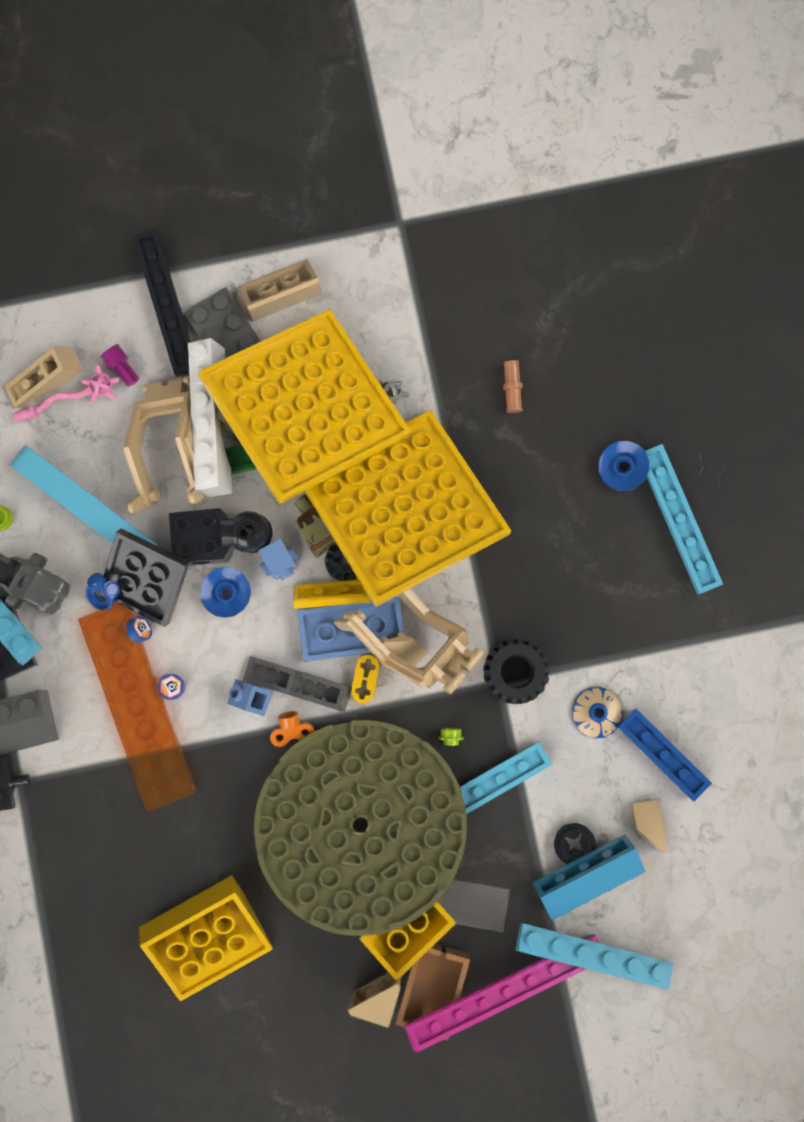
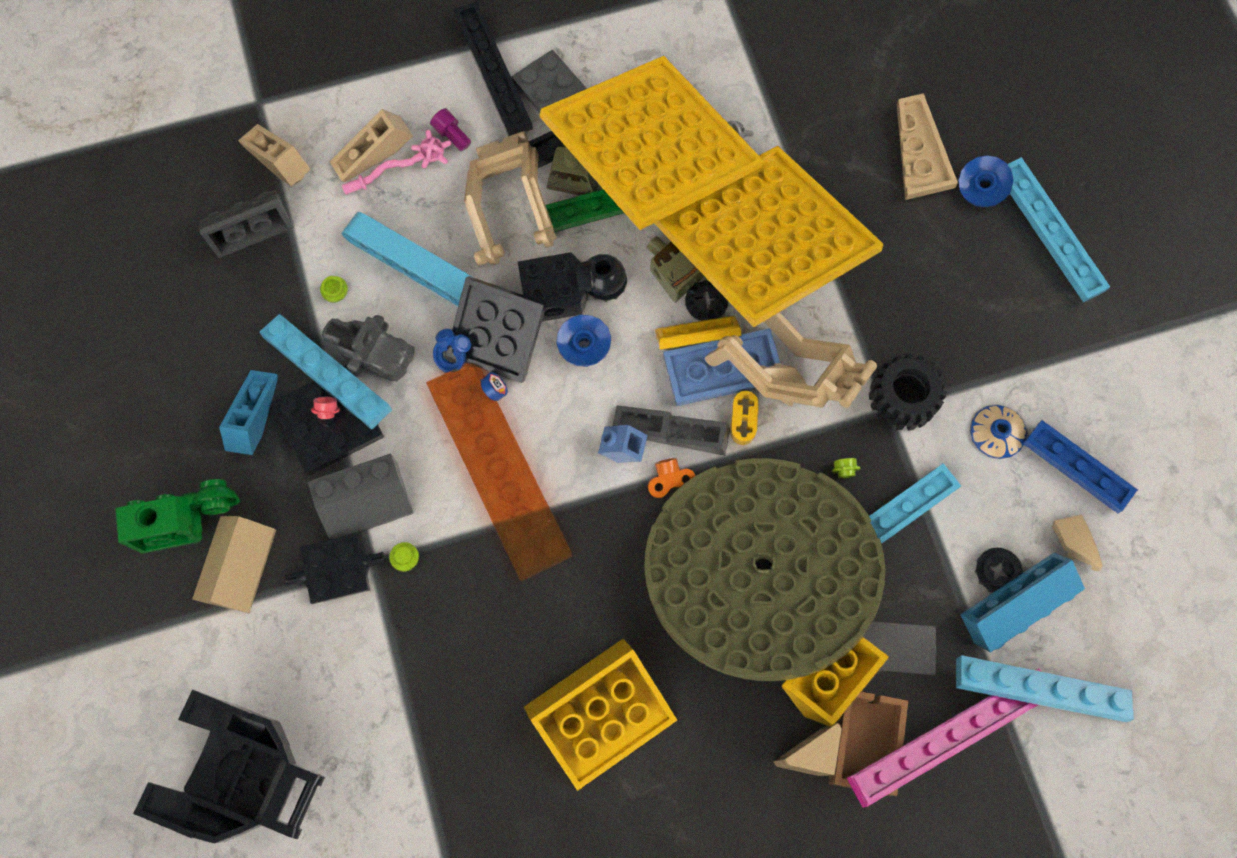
camera: 10 degrees left, 10 degrees down
(46, 781) = (404, 556): none -> lime plate
(171, 686) = (534, 444): tile -> none
(210, 460) = (557, 199): white arch -> none
(278, 560) = (636, 303): medium blue brick -> none
(280, 289) = (610, 49): tan slope -> none
(512, 386) = (858, 118): nougat pin -> none
(569, 428) = (922, 152): none -> tan wing

